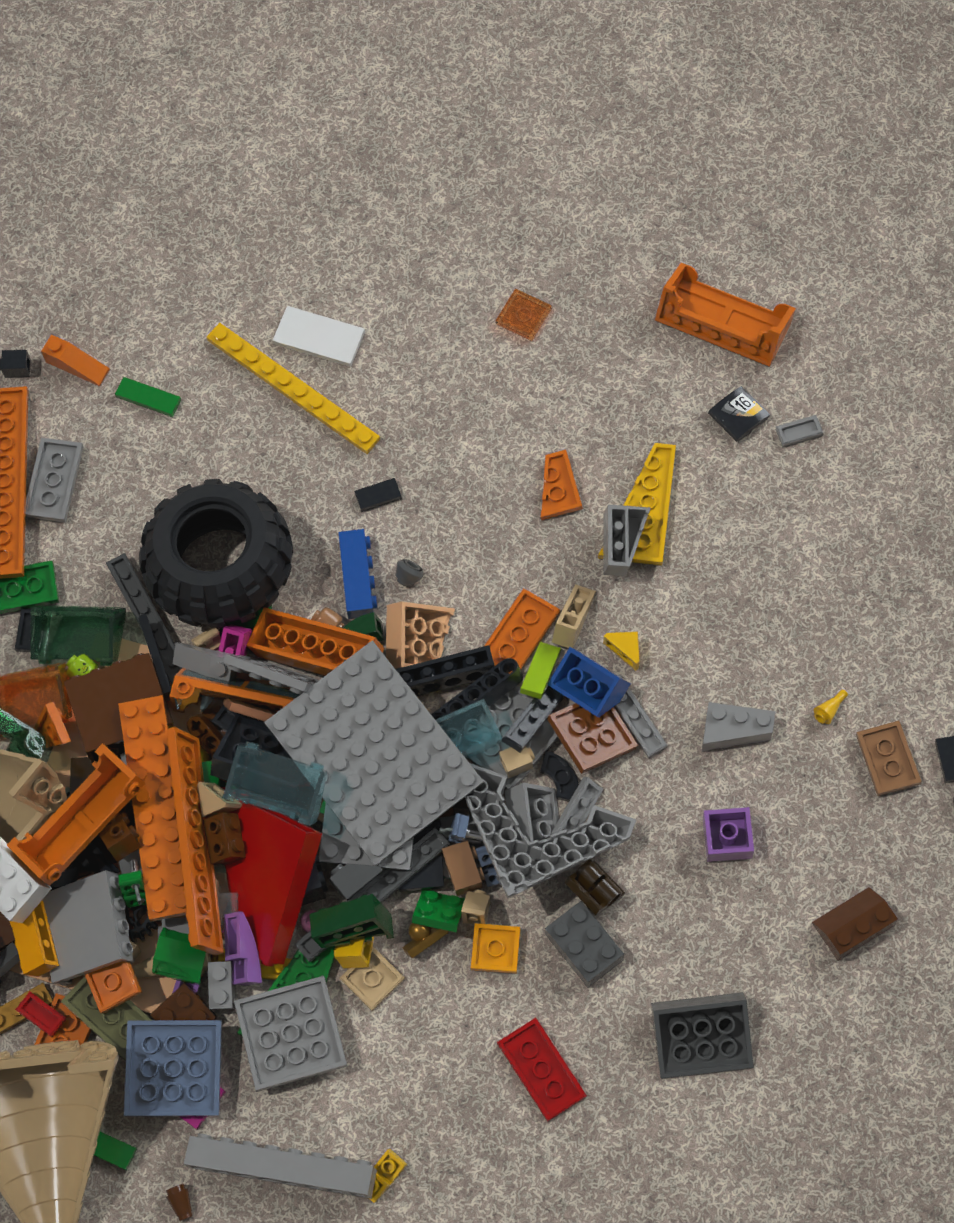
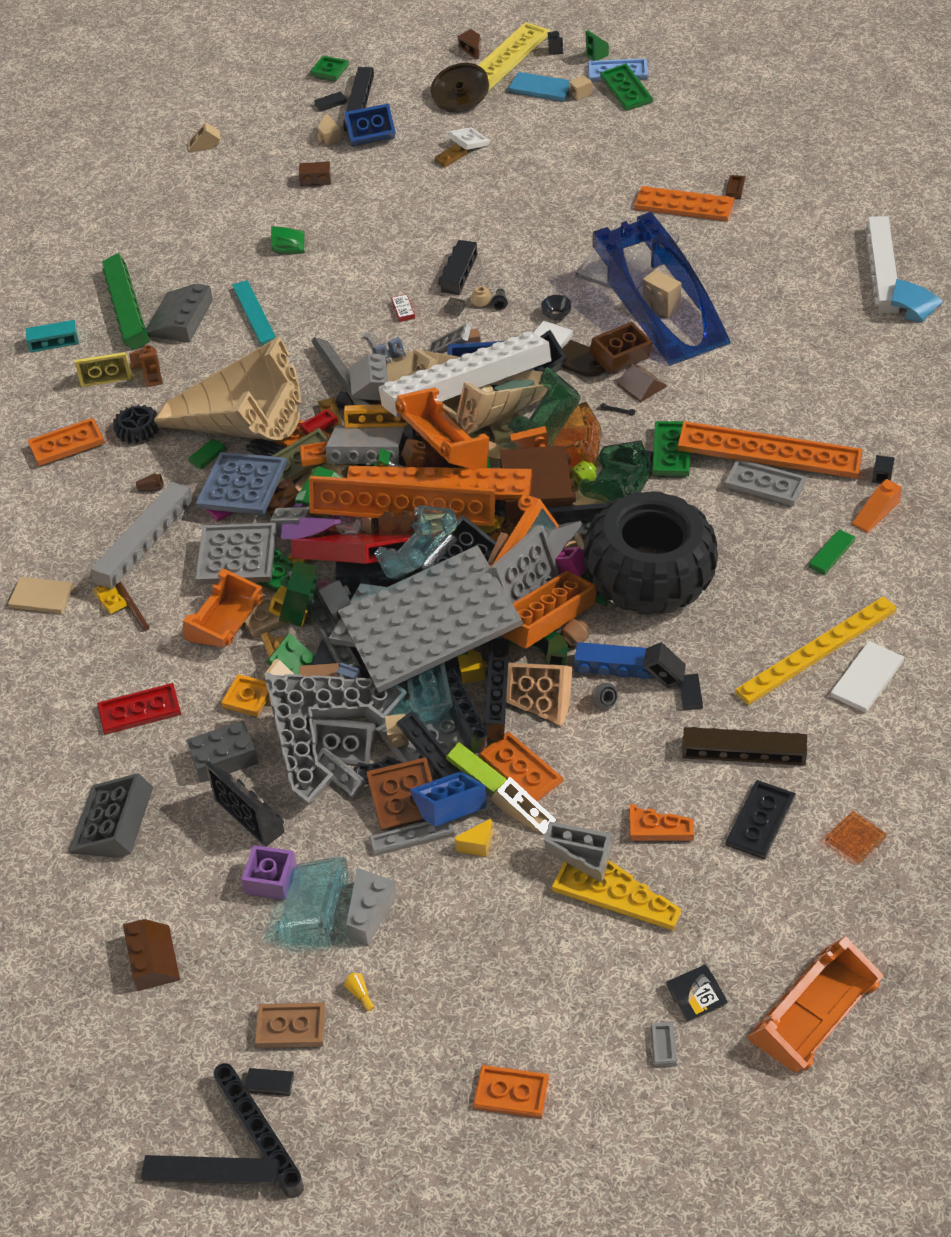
camera: 105 degrees right, 20 degrees down
(359, 517) = (664, 665): none -> black brick
(388, 1016) = (223, 611): none -> orange windscreen
(394, 1136) = (132, 606): none -> reddish brown bar
(442, 428) = (744, 746): none -> dark brown brick
(524, 399) = (760, 819): none -> black tile
(594, 887) = (264, 766): dark brown plate -> none
(654, 885) = (244, 805): none -> black slope
(748, 776) = (313, 902): none -> clear light blue windscreen
(888, 545) = (511, 1091): none -> orange tile

